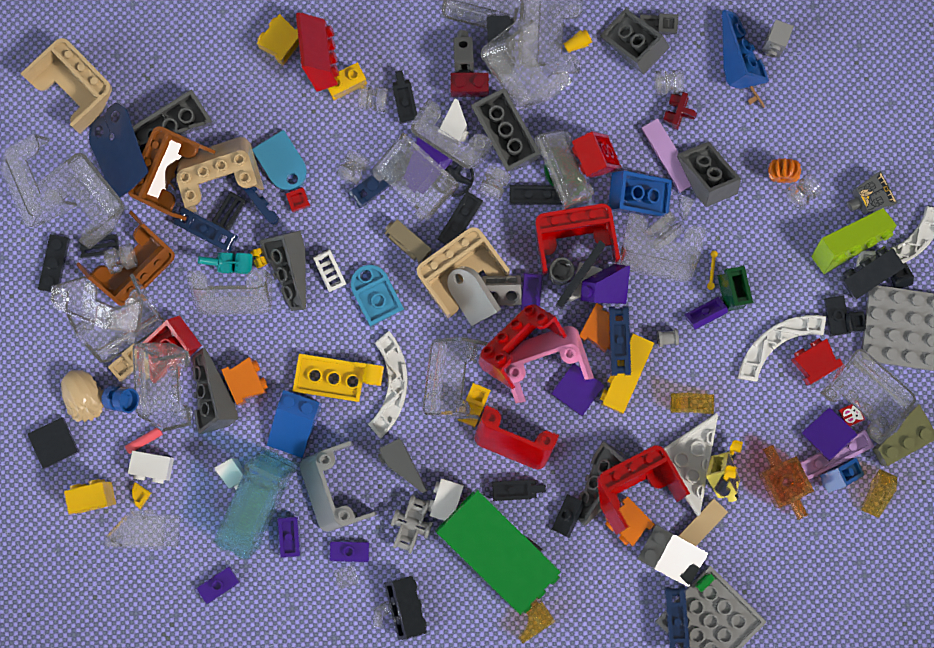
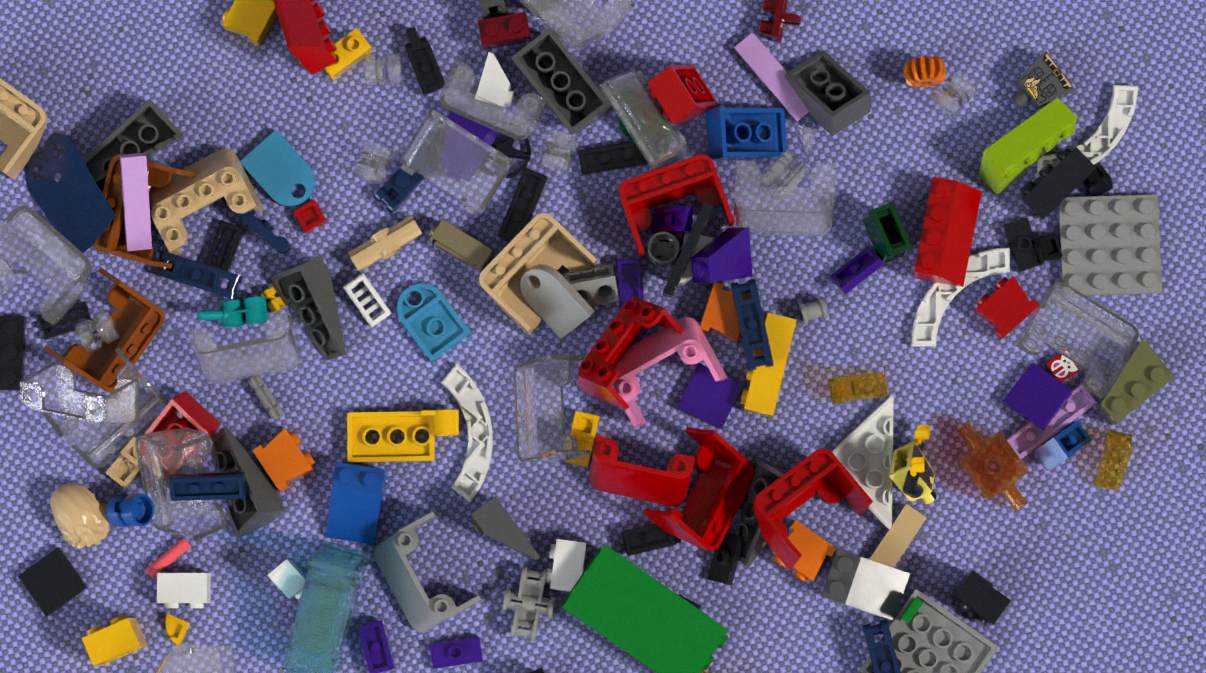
camera: 10 degrees left, 0 degrees up
(166, 164) = (136, 201): none -> lavender tile
(181, 391) = (207, 486): none -> dark blue tile
(239, 331) = (266, 397): none -> light grey axle
(350, 230) = (385, 243): none -> tan piece
(567, 468) = (715, 496): none -> red windscreen
(572, 250) = (673, 219): none -> dark purple plate
(710, 285) = (856, 235): yellow hinge -> none
(758, 581) = (980, 597): none -> black brick
(781, 296) = (947, 232): none -> red slope

